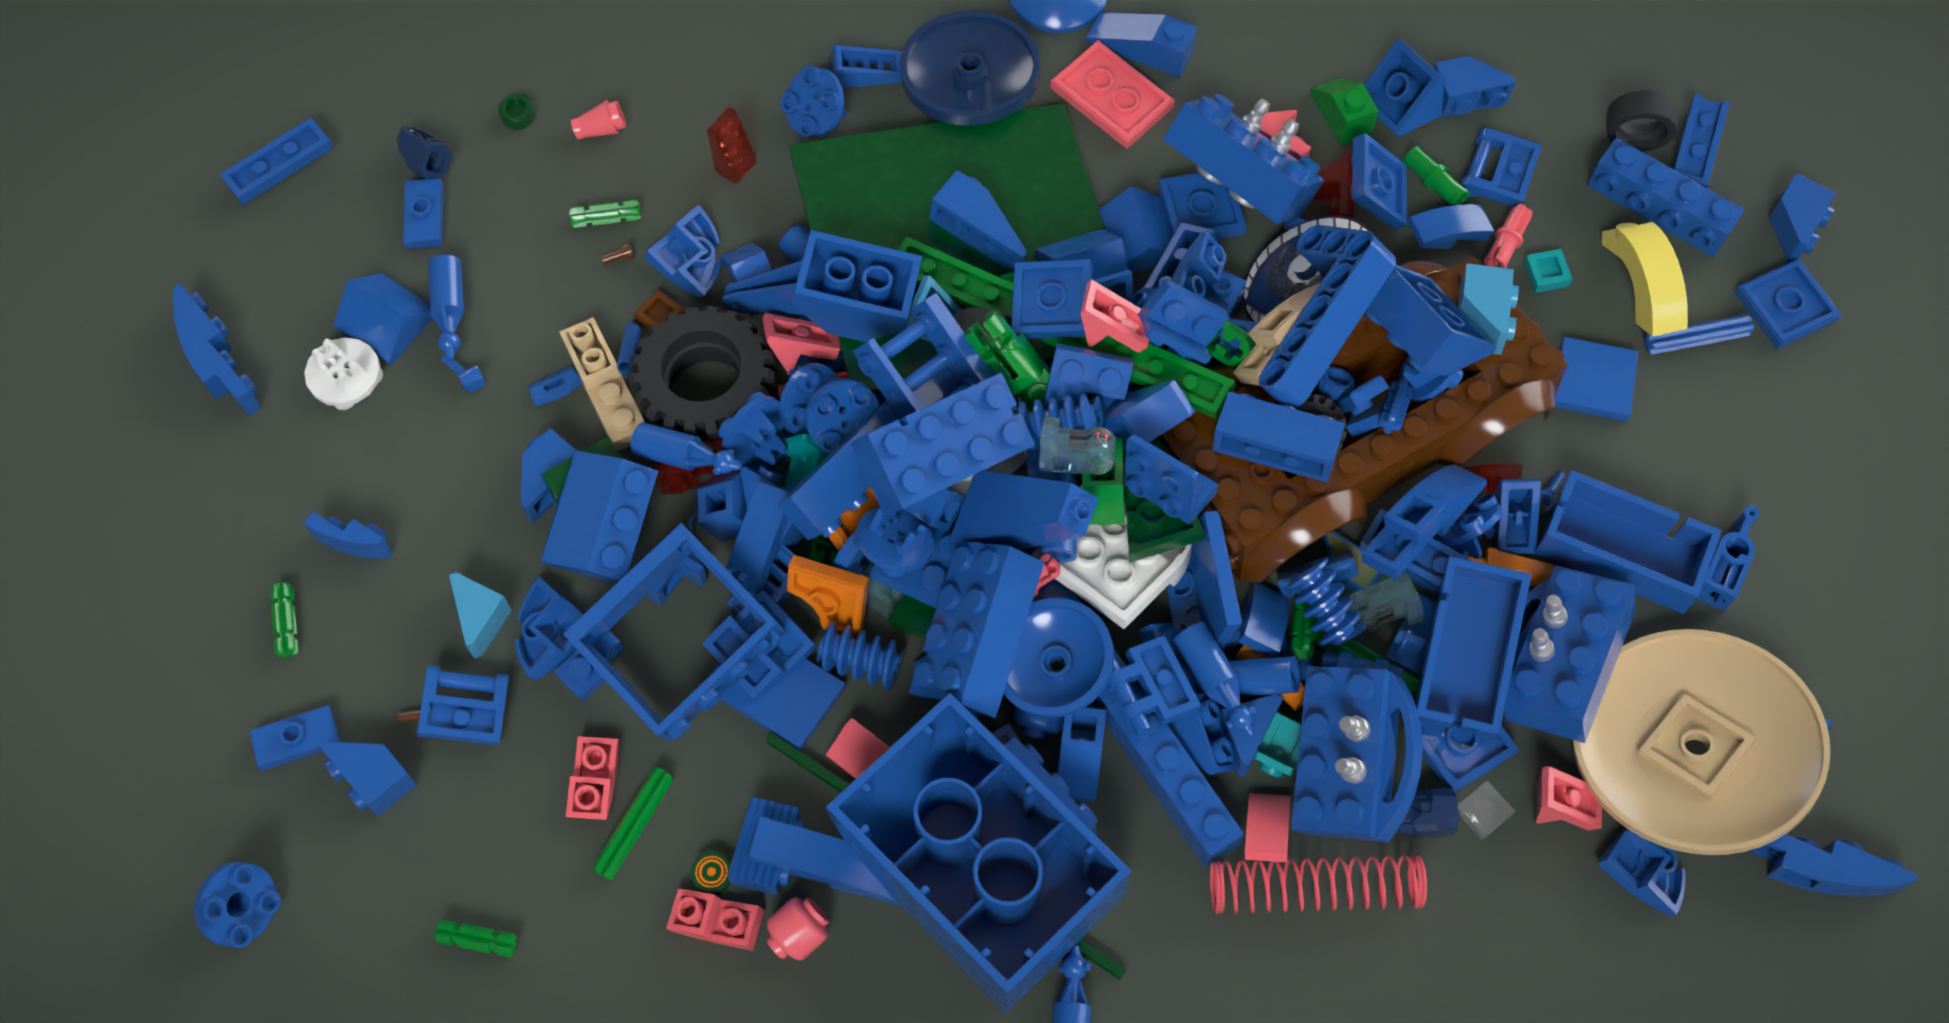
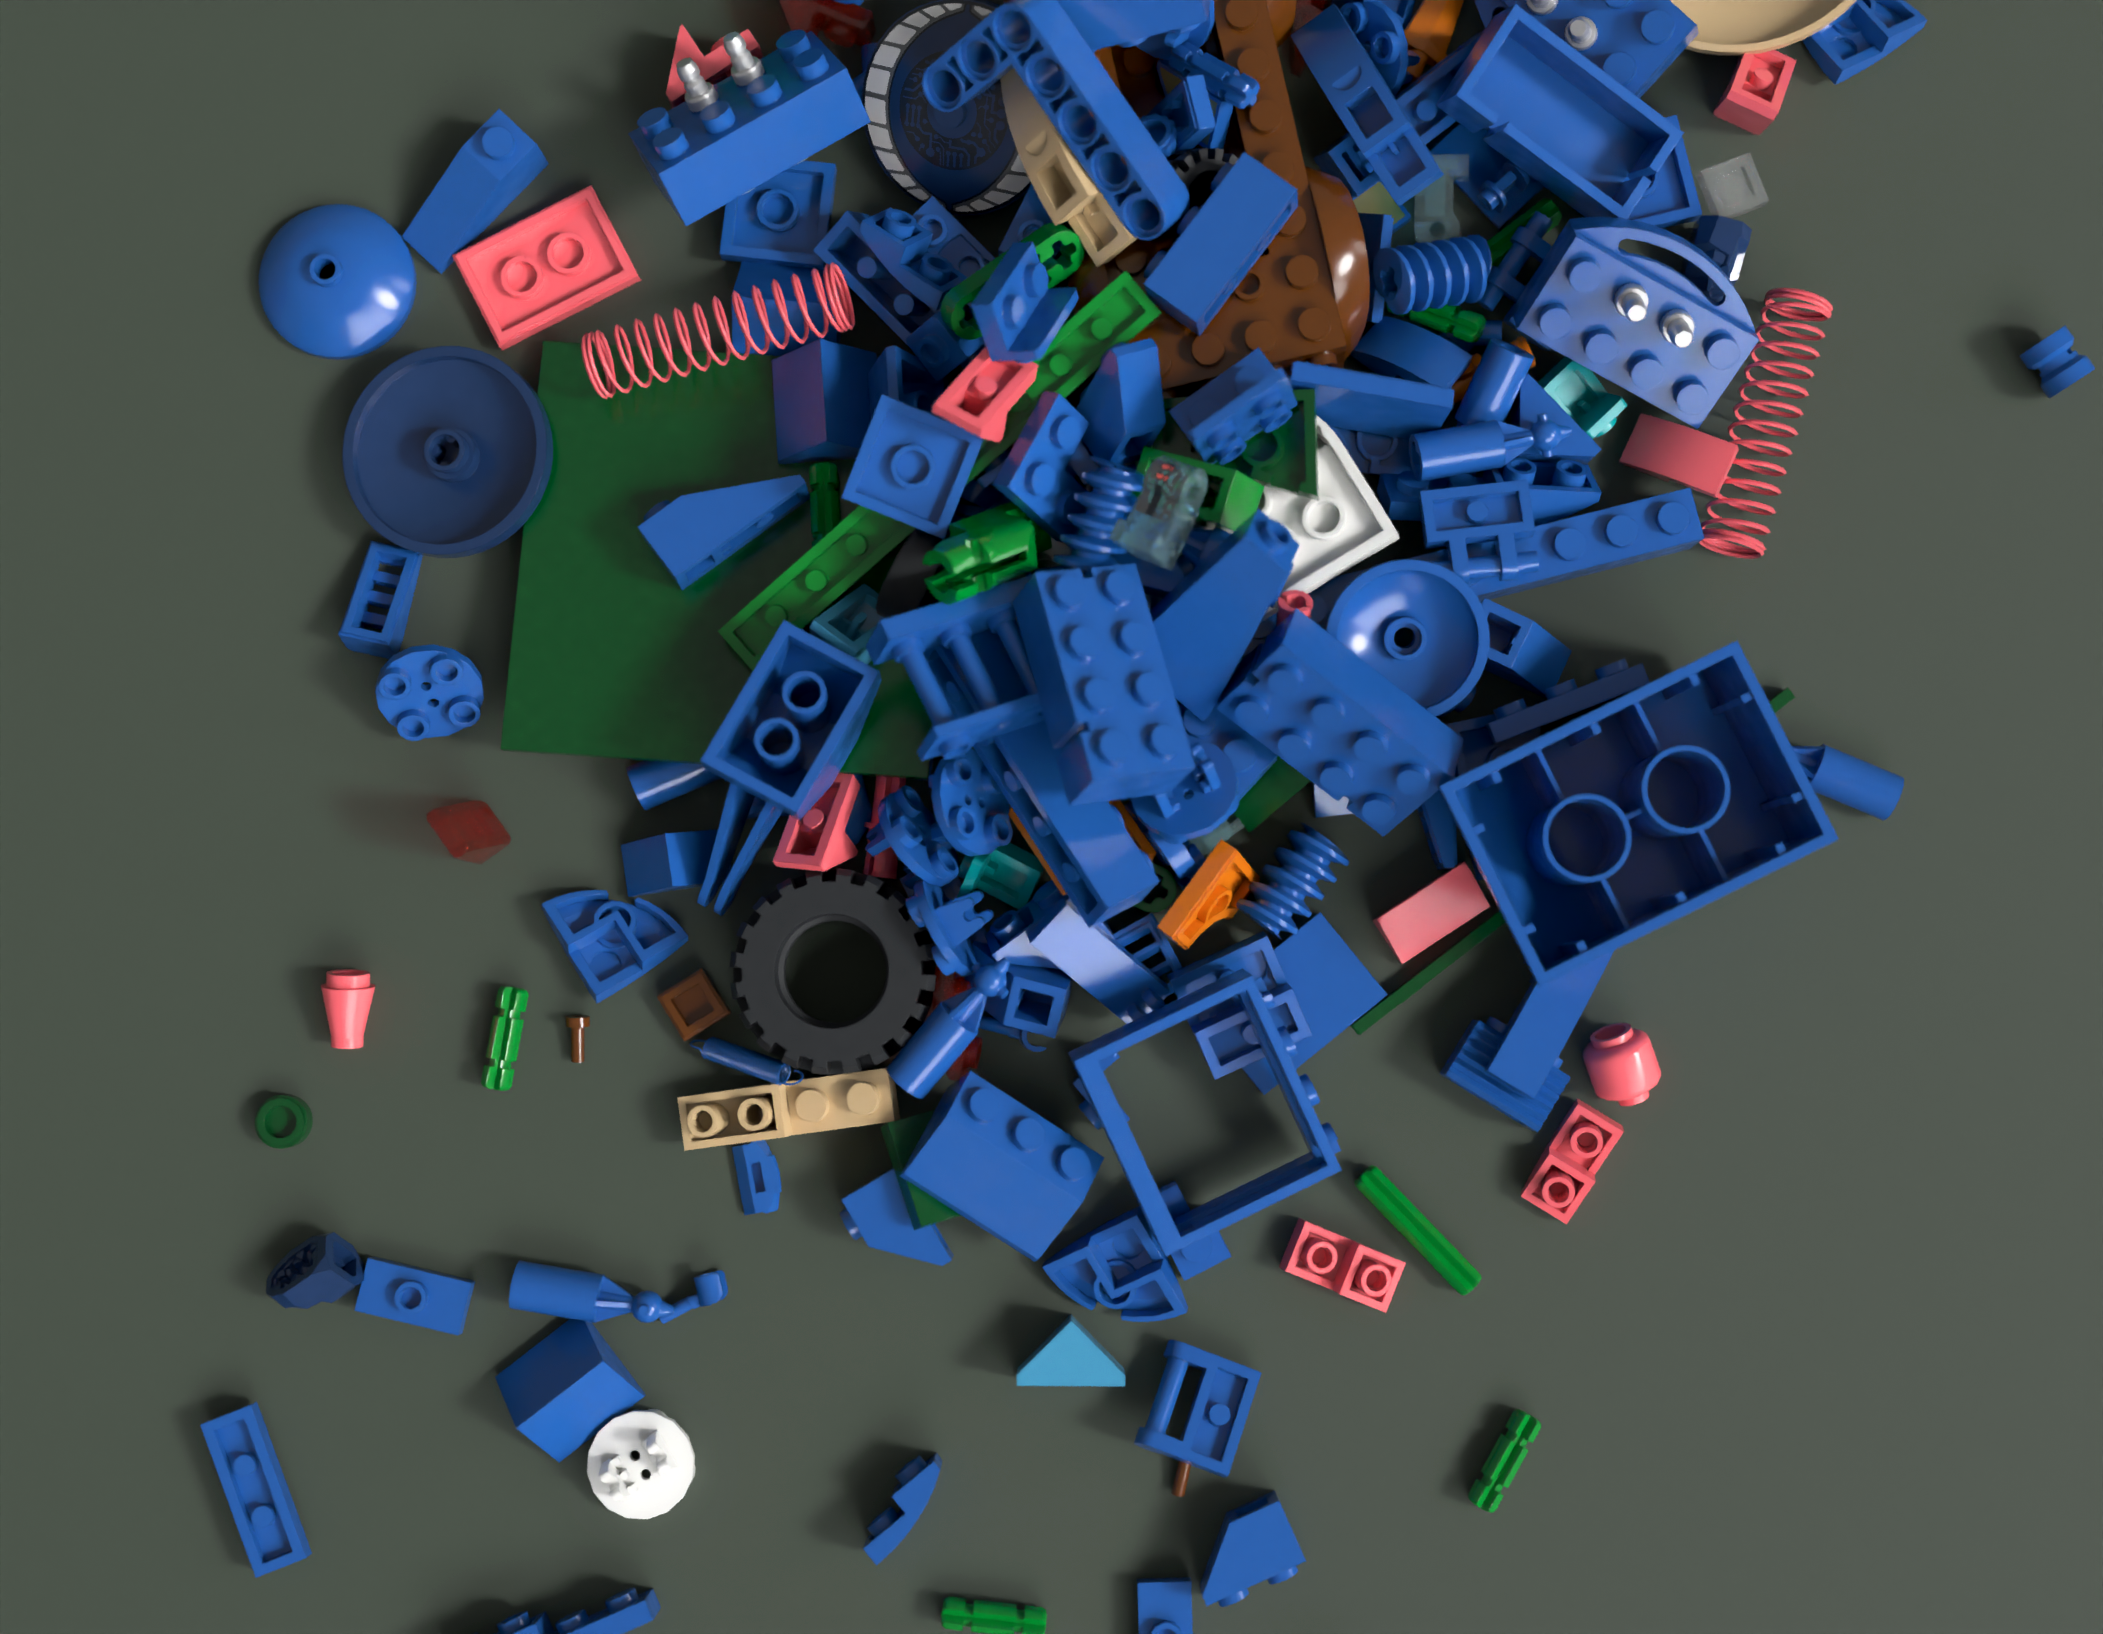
camera: 70 degrees left, 20 degrees up
(710, 873) = (1512, 1149): dark green tile -> none
(1072, 128) = (832, 277): none -> coral piece

